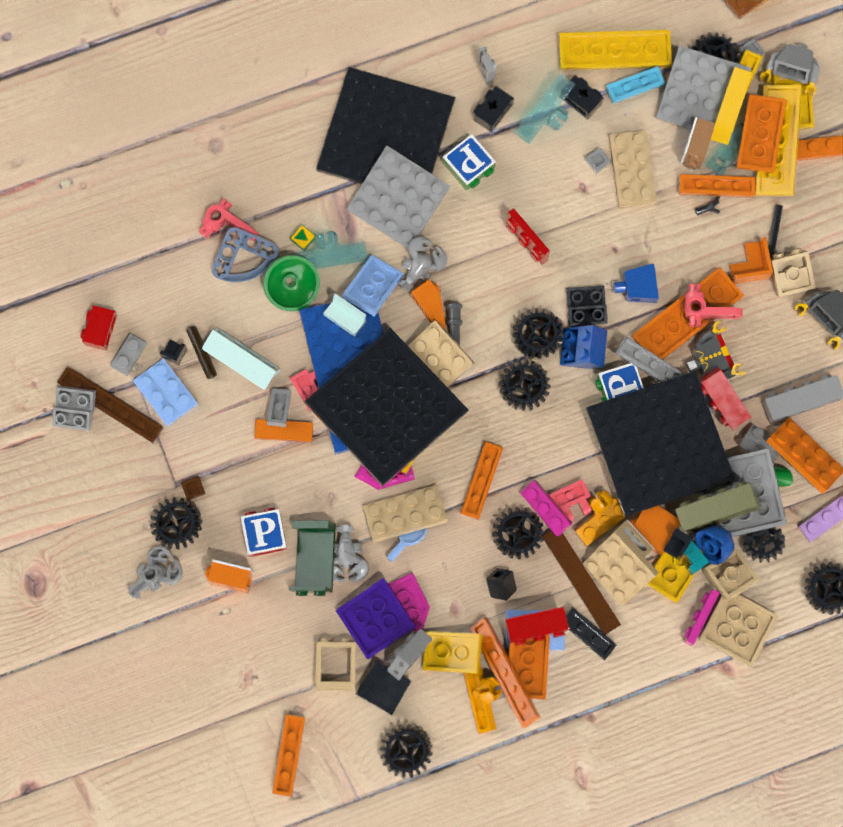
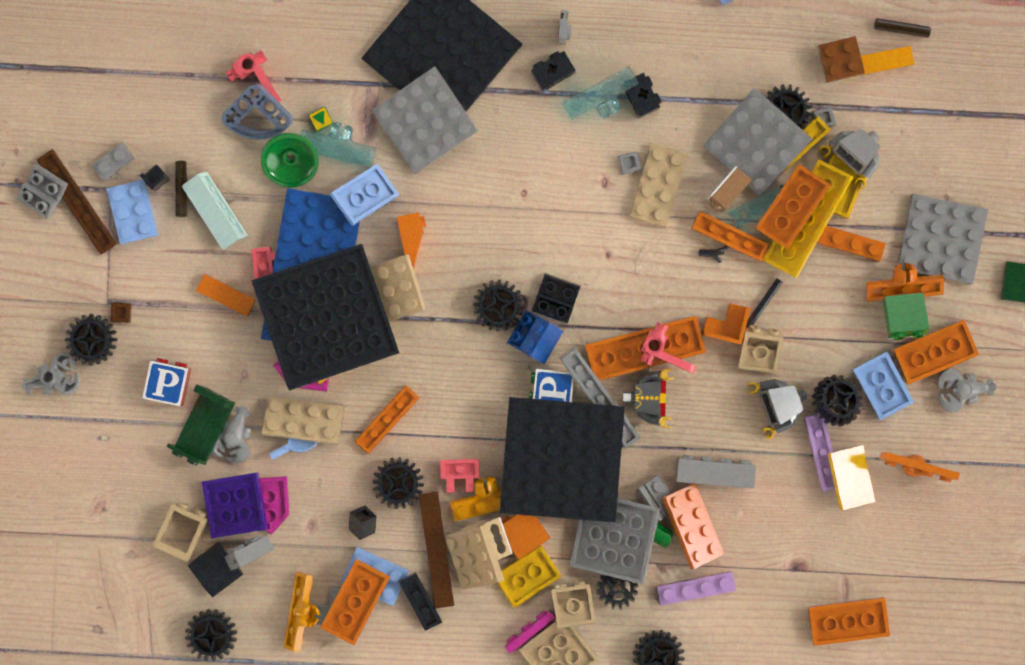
camera: 20 degrees right, 10 degrees up
(99, 327) = (95, 125): red brick -> none
(229, 576) = (117, 411): orange piece -> none
(279, 407) = (229, 272): light grey plate -> none
(288, 755) = (105, 593): orange plate -> none
(345, 315) = (325, 214): light aqua panel -> none
(421, 263) = (420, 192): light grey animal -> none
(453, 652) = (290, 566): yellow tile -> none
(454, 320) = (425, 262): dark grey pin -> none
(469, 162) = (507, 114): piece -> none
(506, 674) = (327, 606): orange tile -> none
(521, 369) = (448, 346): black gear -> none
(527, 237) = (527, 210): red plate -> none
(537, 626) = (373, 578): red brick -> none
(546, 508) = (433, 471): dark pink plate -> none
(615, 50) = (694, 62): yellow plate -> none
(635, 85) = (697, 105): medium azure plate -> none
(639, 285) = (612, 300): blue torso -> none
(677, 544) = (535, 560): black panel -> none
(694, 558) = (543, 564): teal leg -> none
(715, 543) = (571, 573): blue cylinder -> none
(719, 508) = (586, 543): olive brick -> none
(724, 398) = (641, 442): brick -> none
(731, 105) = (776, 167): yellow tile -> none

